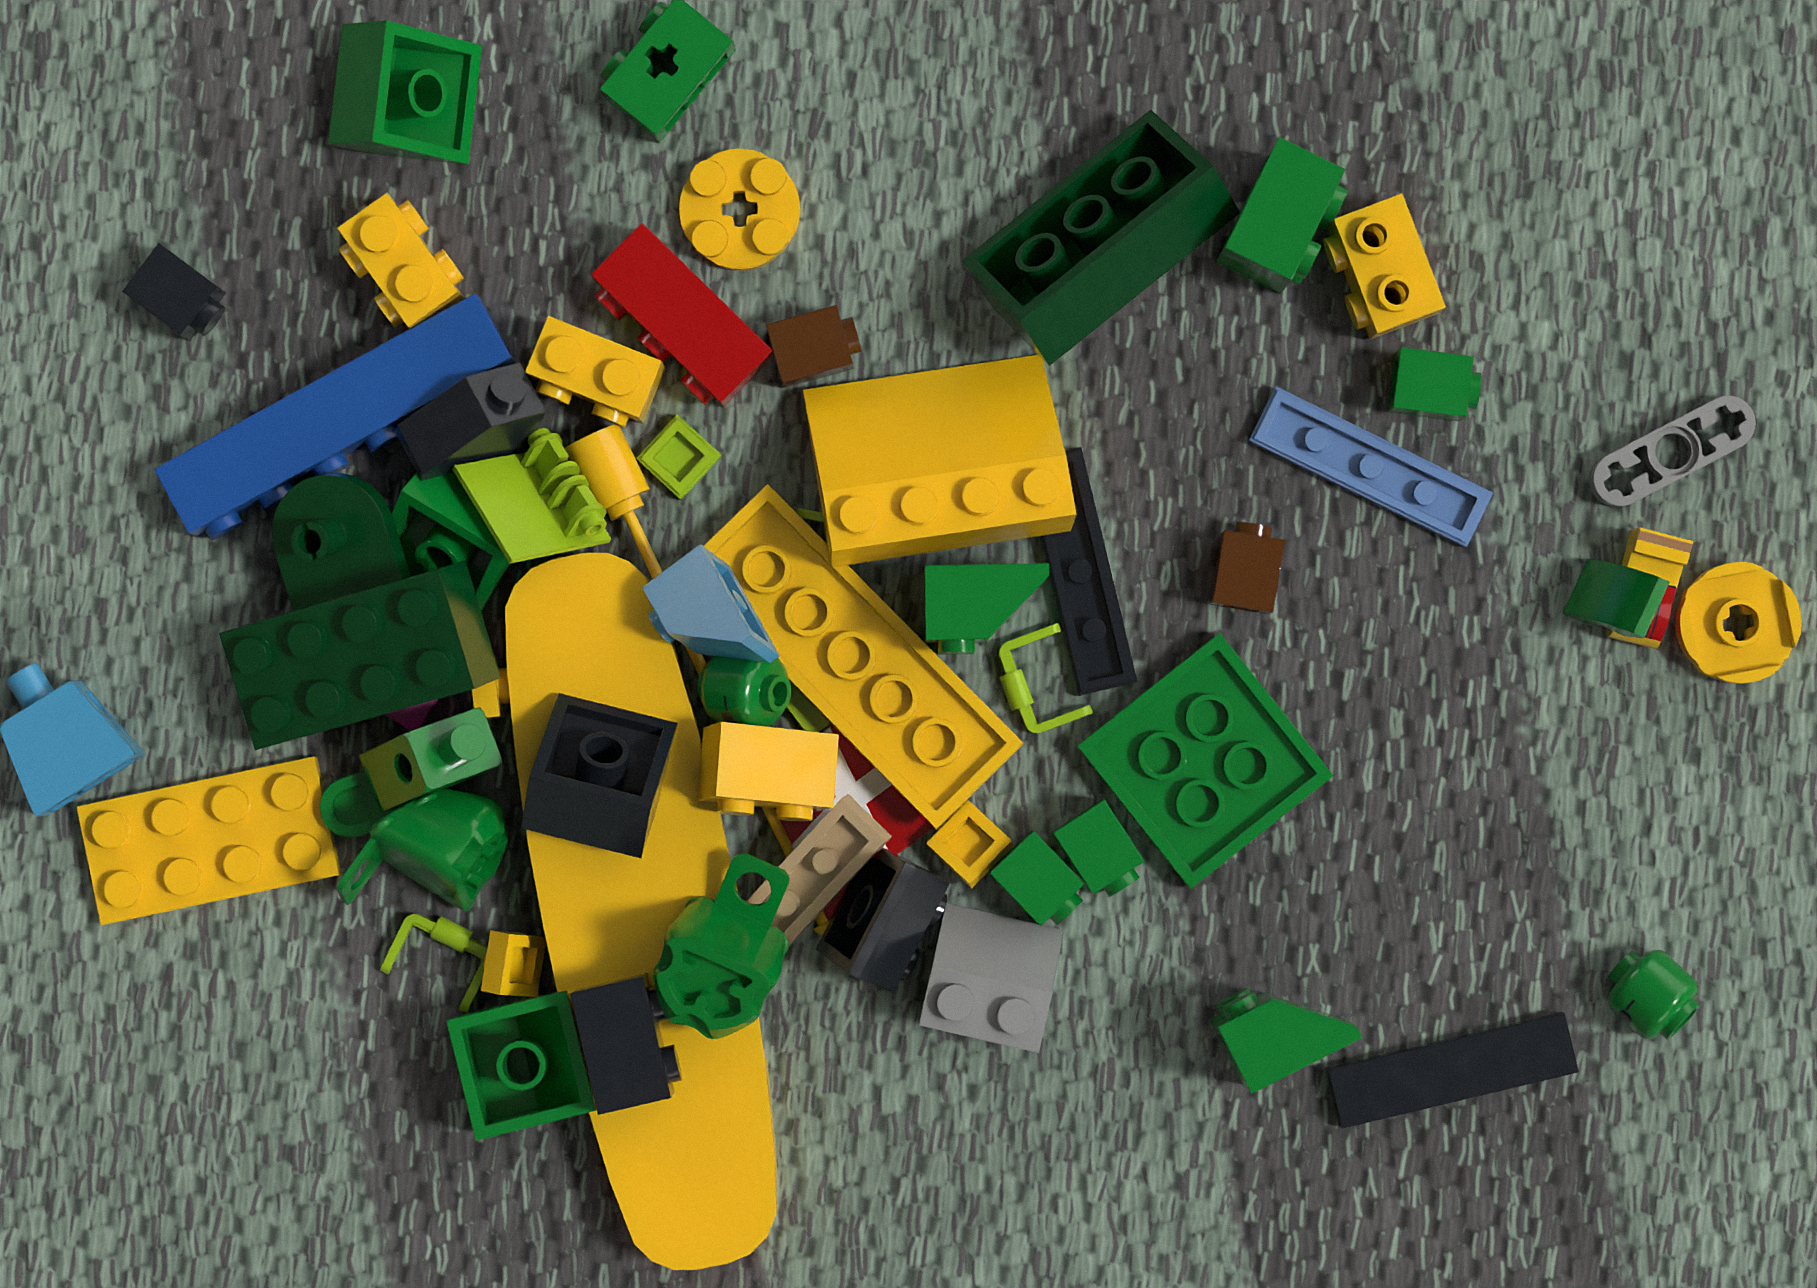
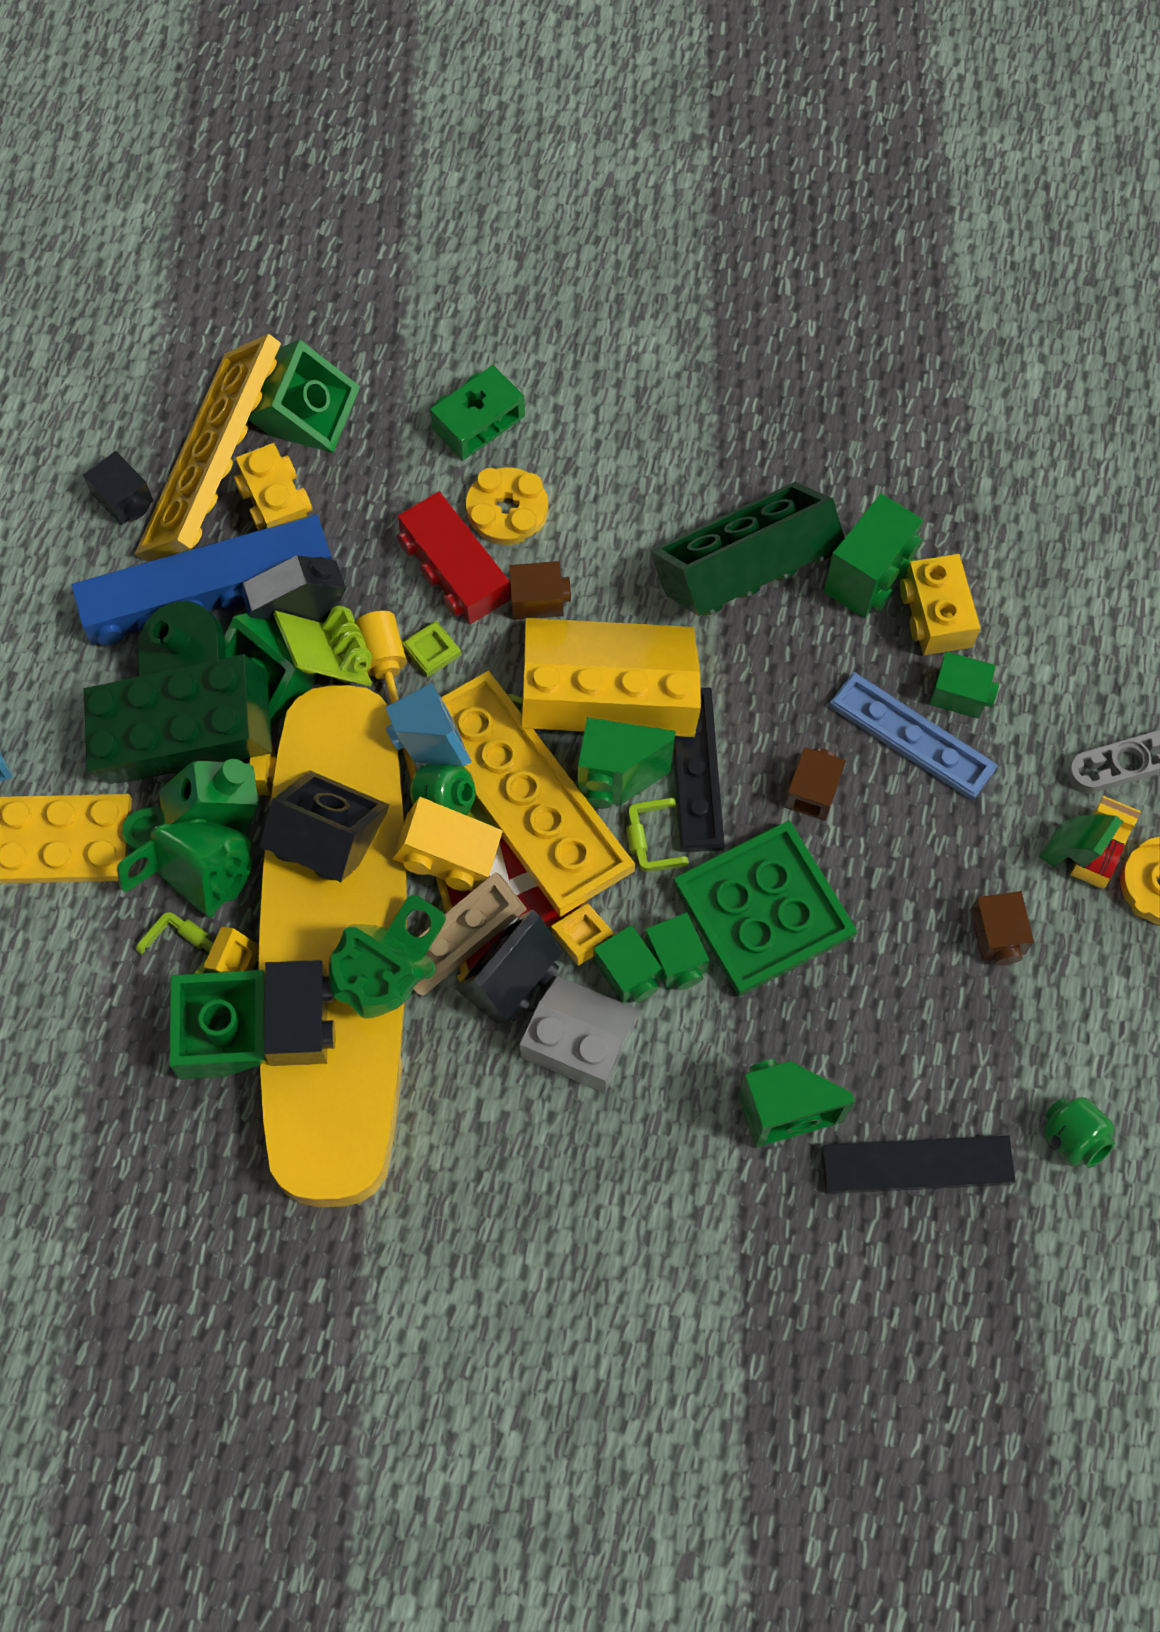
camera: 10 degrees right, 20 degrees down
(291, 209) = (208, 450): none -> yellow plate
(595, 370) = (387, 579): yellow brick -> none
(1524, 735) = (1002, 927): none -> reddish brown brick

